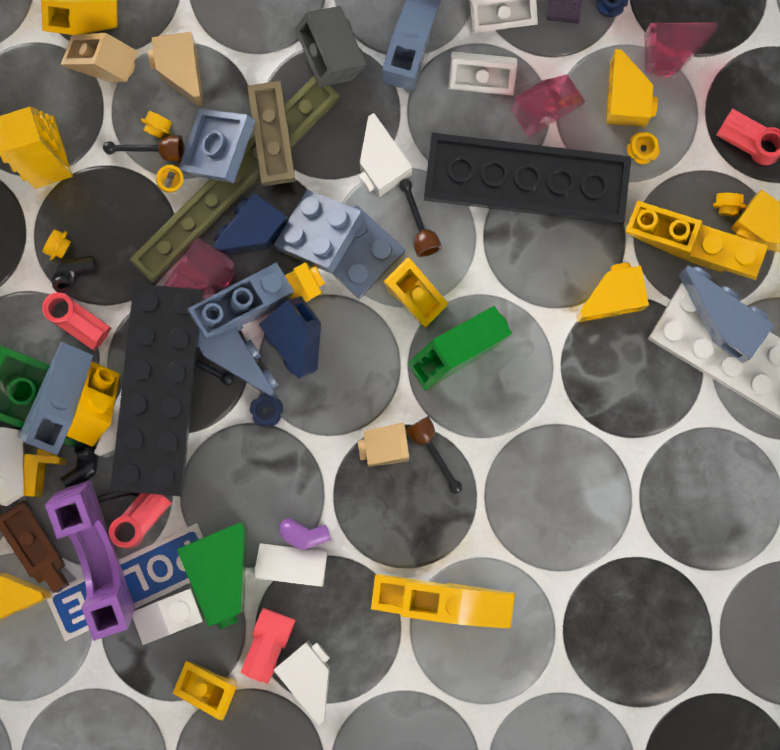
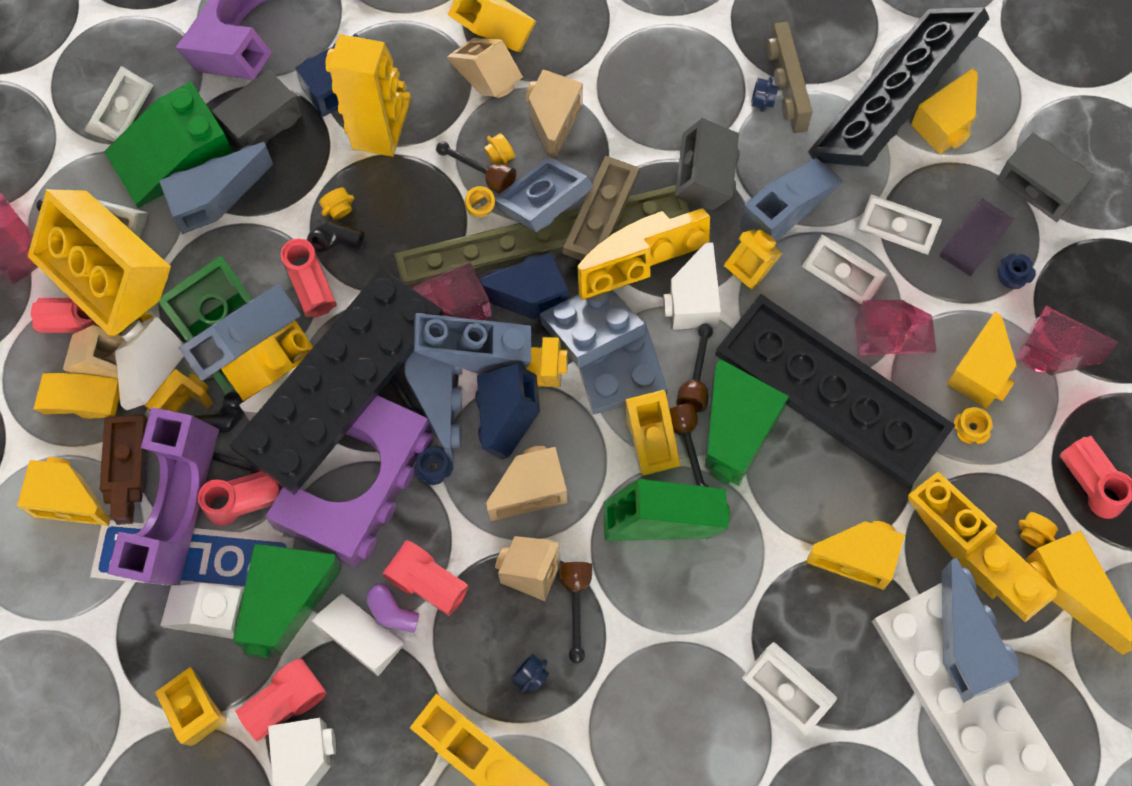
camera: 30 degrees right, 15 degrees down
(235, 494) = (351, 526): none -> medium lavender arch
(305, 497) = (417, 573): none -> coral piece
(314, 157) = (632, 250): none -> yellow slope
(347, 382) = (529, 484): none -> tan slope
(410, 105) = (753, 257): none -> yellow bracket
(432, 268) = (684, 421): none -> hinge
(432, 520) = (531, 674): none -> dark blue plate
(473, 245) = (739, 421): none -> green slope
(617, 421) = (789, 688): none -> white slope

